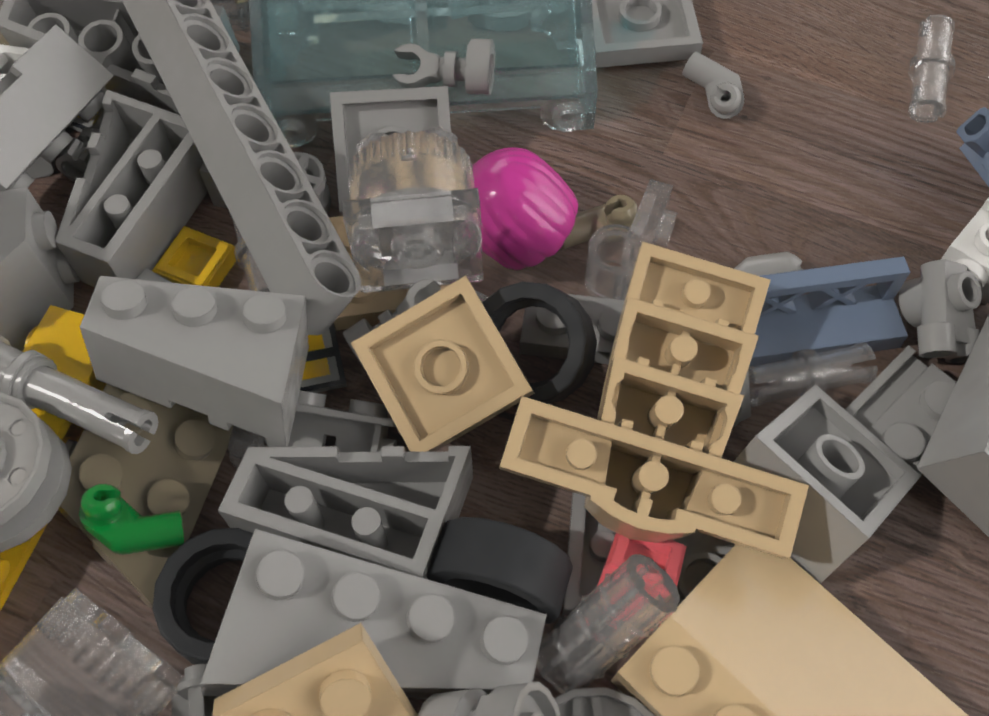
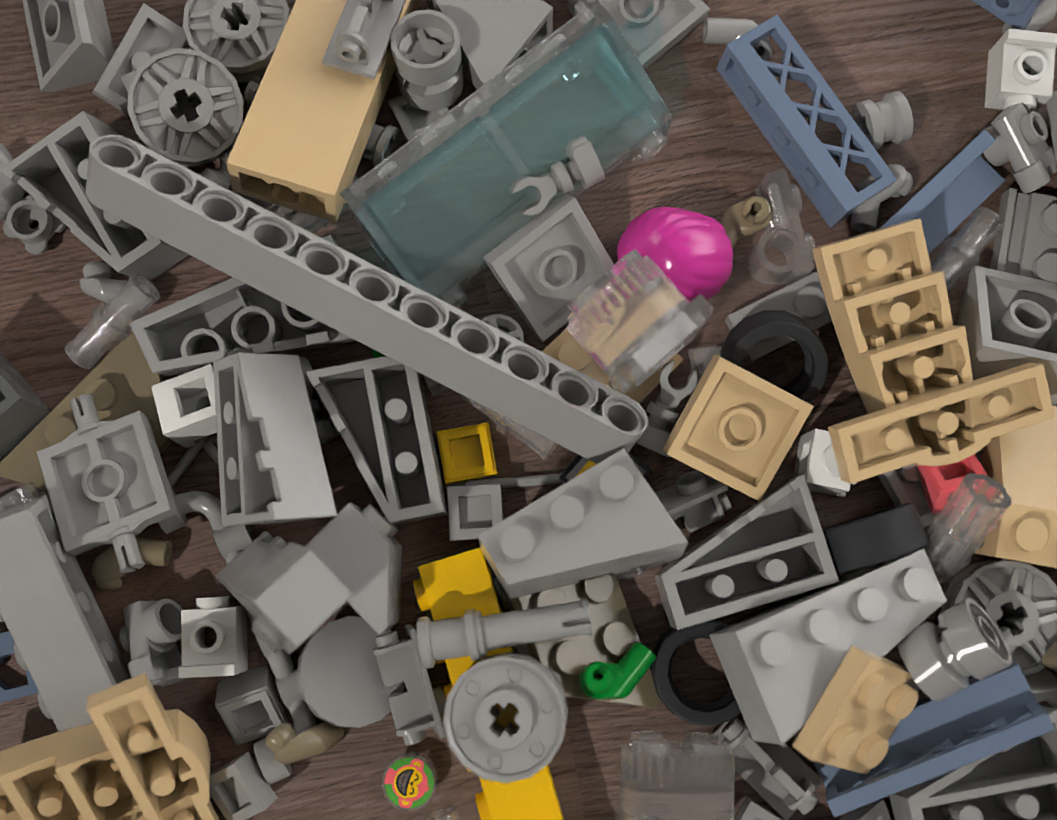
camera: 35 degrees left, 20 degrees up
(509, 495) = (819, 465): none -> white brick
(706, 171) = (787, 130): none -> sand blue fence
(808, 214) = (885, 120): none -> light grey wheel

